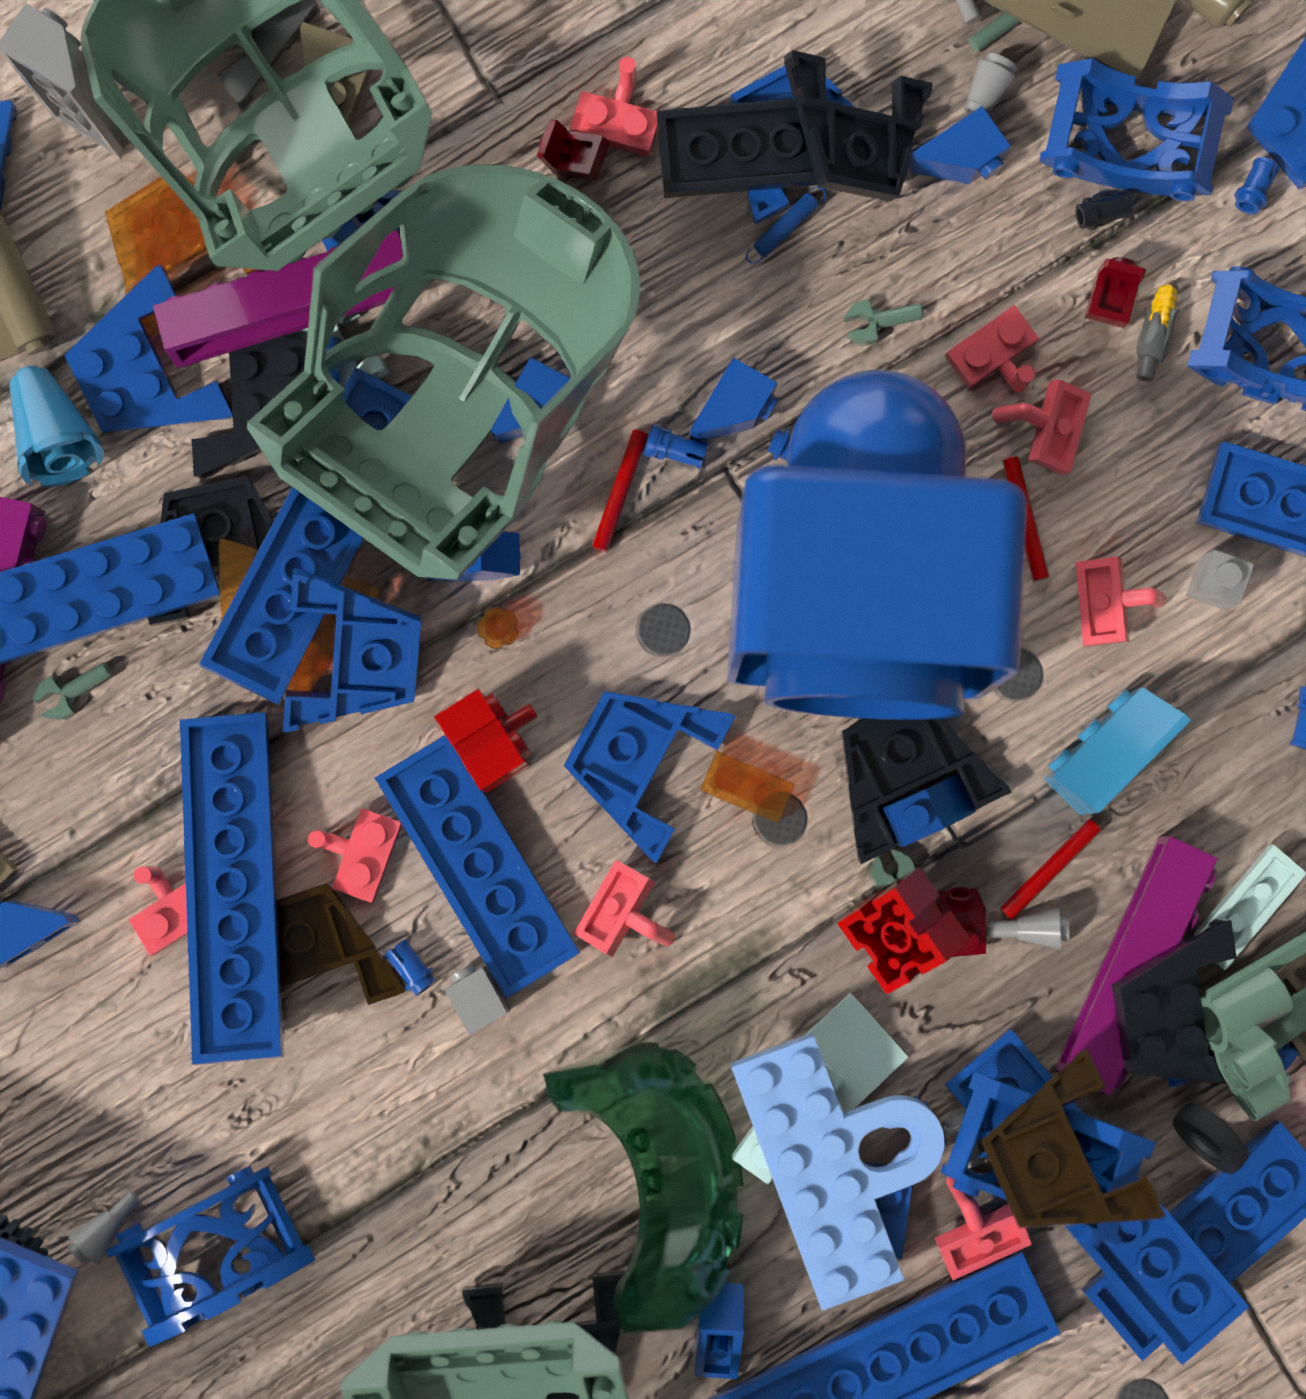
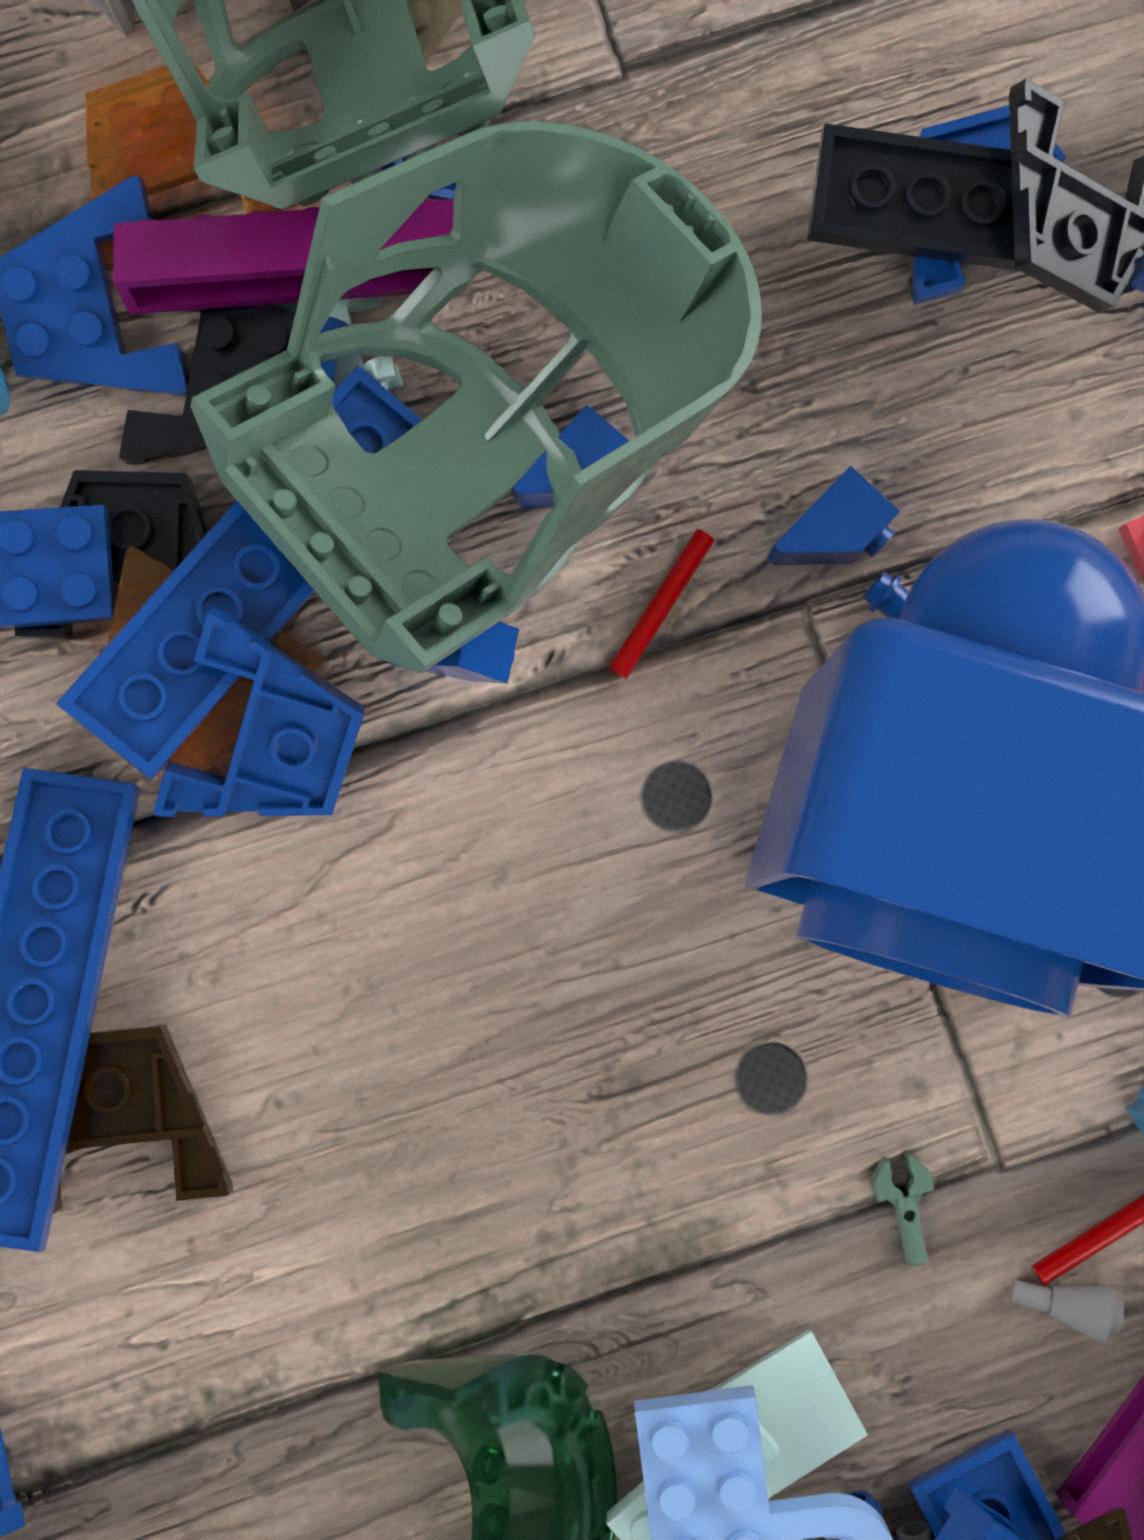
camera: 10 degrees right, 0 degrees up
(363, 855) = (220, 998): coral plate -> none
(411, 968) = (244, 1163): blue pin -> none
(476, 998) = (320, 1225): light grey brick -> none
(477, 866) = (363, 1050): blue plate -> none
(487, 738) = (413, 887): red brick -> none
(497, 616) = (463, 729): clear orange plate -> none
(572, 152) = (703, 156): dark red bracket -> none
(617, 909) = (530, 1153): coral plate -> none
(620, 122) = (766, 131): coral plate -> none
(623, 750) = (588, 944): blue wing -> none
(664, 444) = (734, 558): blue pin -> none
(747, 787) = (738, 1029): clear orange plate -> none
(786, 224) = (953, 313): blue piece -> none
(879, 320) = (1045, 462): sand green bar -> none
(898, 756) = (944, 1038): black wing -> none
(903, 931) = (905, 1276): red brick -> none
(927, 811) = (966, 1118): blue slope -> none
(970, 913) = (980, 1274): dark red bracket -> none

